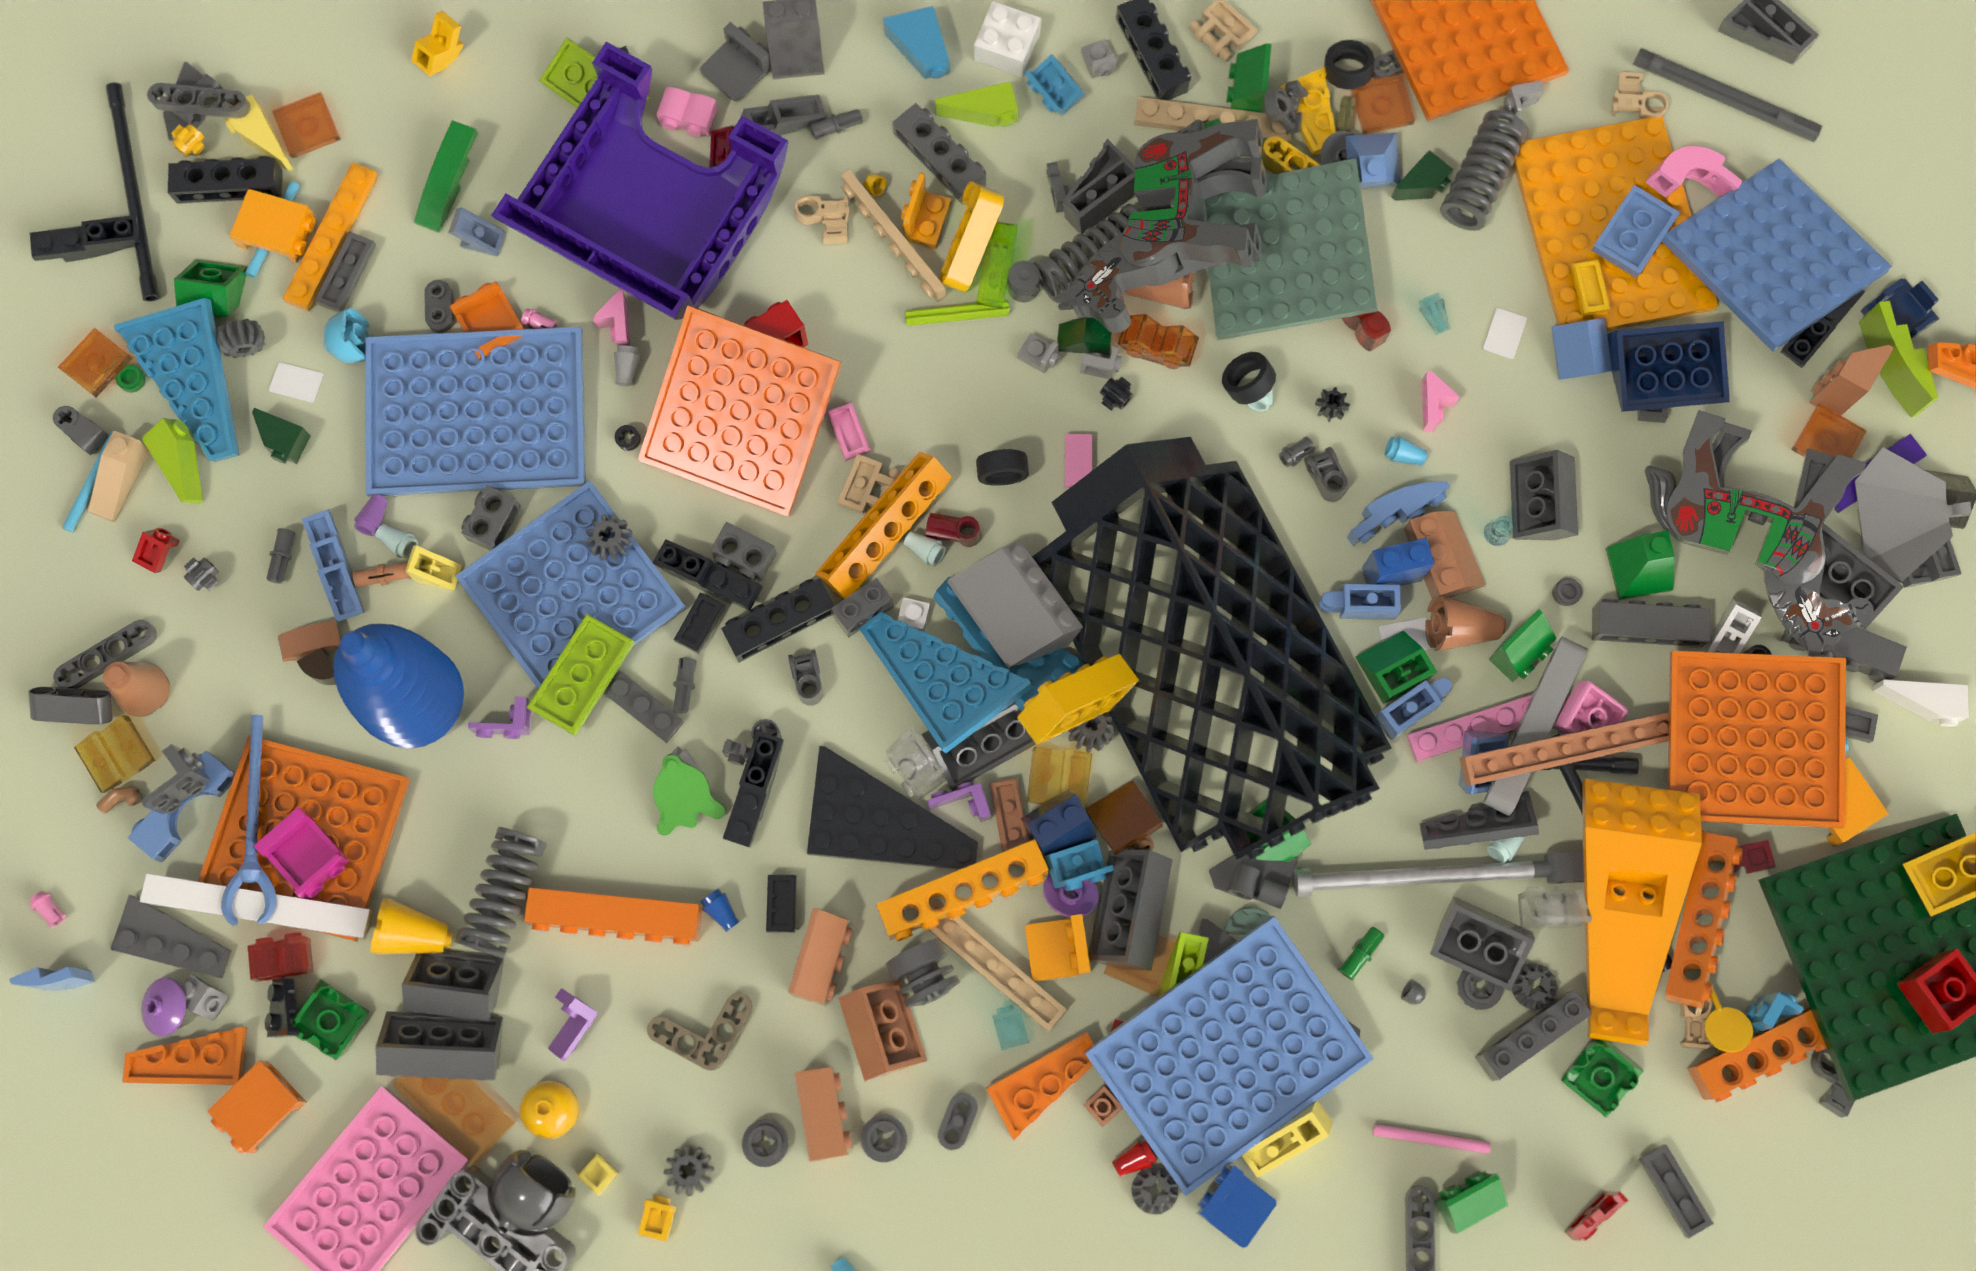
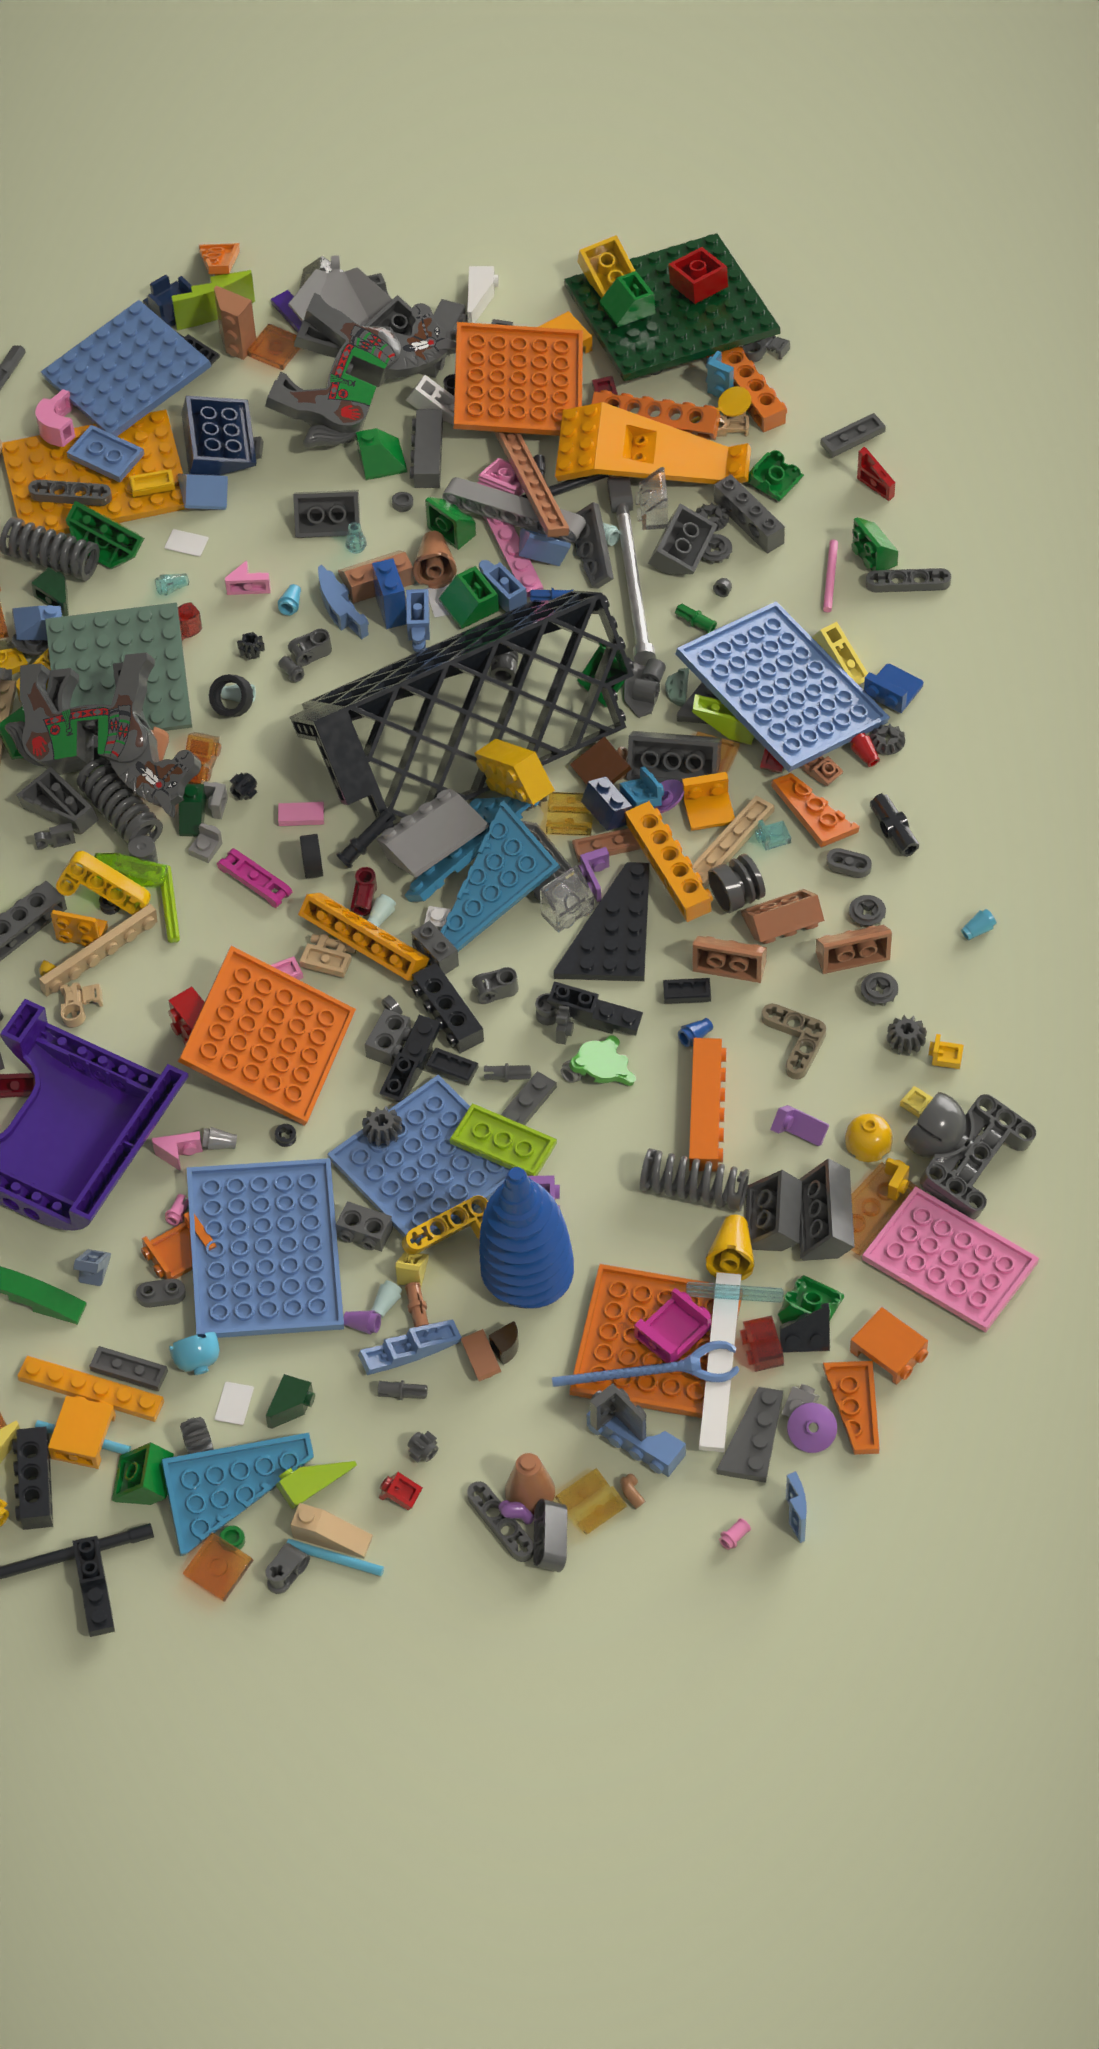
camera: 90 degrees left, 20 degrees down
(101, 662) = (516, 1510): none -> medium lavender arm
(333, 927) = (735, 1292): none -> clear light blue axle
(452, 576) = (446, 1226): none -> yellow beam
(469, 1139) = (900, 1176): none -> yellow bracket
(787, 557) = (390, 1004): none -> dark grey tile
(986, 406) = (254, 877): none -> dark pink plate
(1012, 1185) = (894, 824): none -> black piece
(1015, 522) = (359, 845): none -> black pin
(1402, 771) = (547, 594): none -> blue axle
(1508, 232) = (114, 540): none -> green wedge
(1577, 193) = (71, 489): none -> dark grey beam
(1896, 890) = (628, 299): none -> green slope

